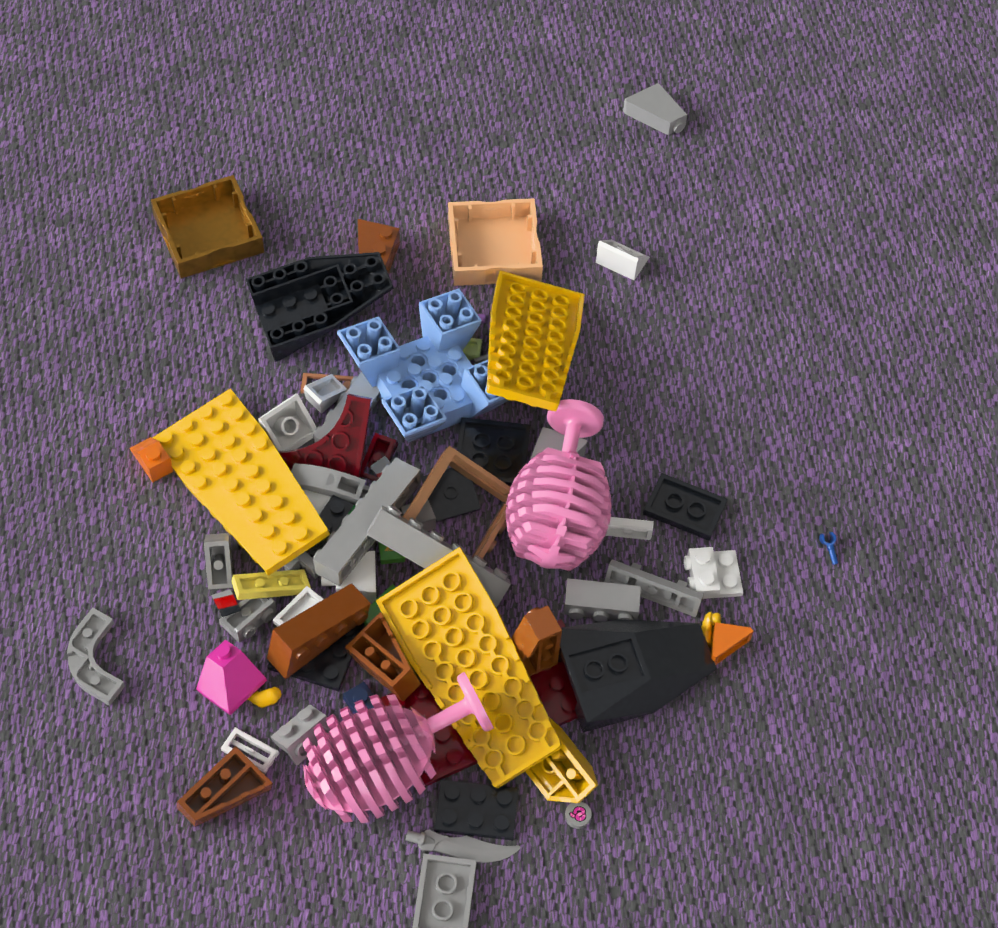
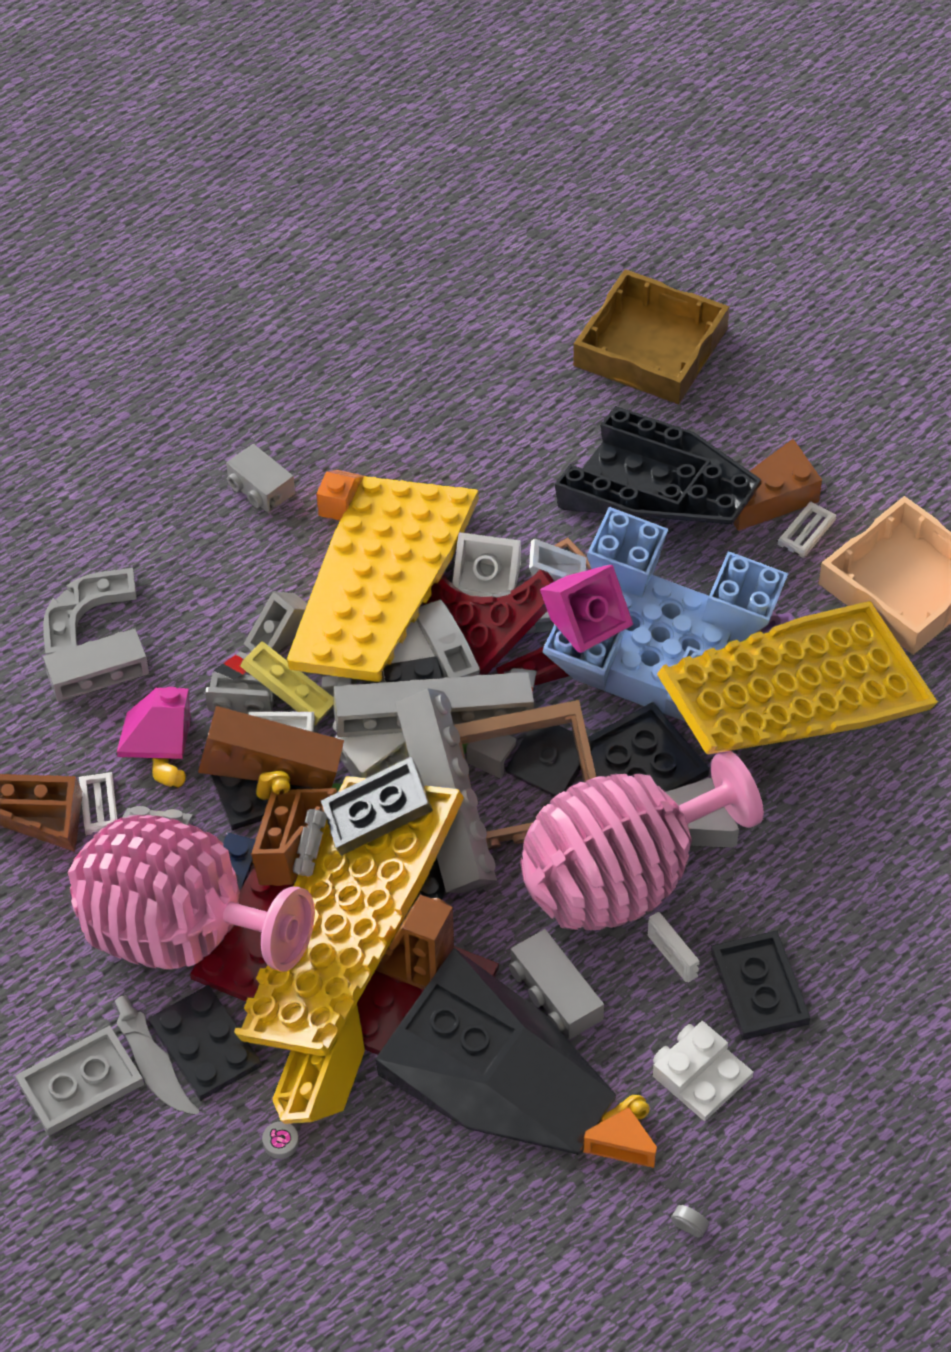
camera: 55 degrees right, 5 degrees down
(96, 491) = (260, 478): none -> light grey hinge
(145, 679) = (96, 664): none -> light grey brick
(339, 642) = (272, 781): none -> yellow arm
(404, 391) = (587, 606): none -> dark pink slope
(410, 651) = (309, 842): none -> light grey axle
(418, 276) = (794, 546): none -> white tile
(424, 597) = (376, 806): none -> plate
(656, 588) = (631, 1049): light grey hinge -> none
(800, 646) = (690, 1221): none -> light grey tile
(830, 546) = (859, 1167): blue hand -> none

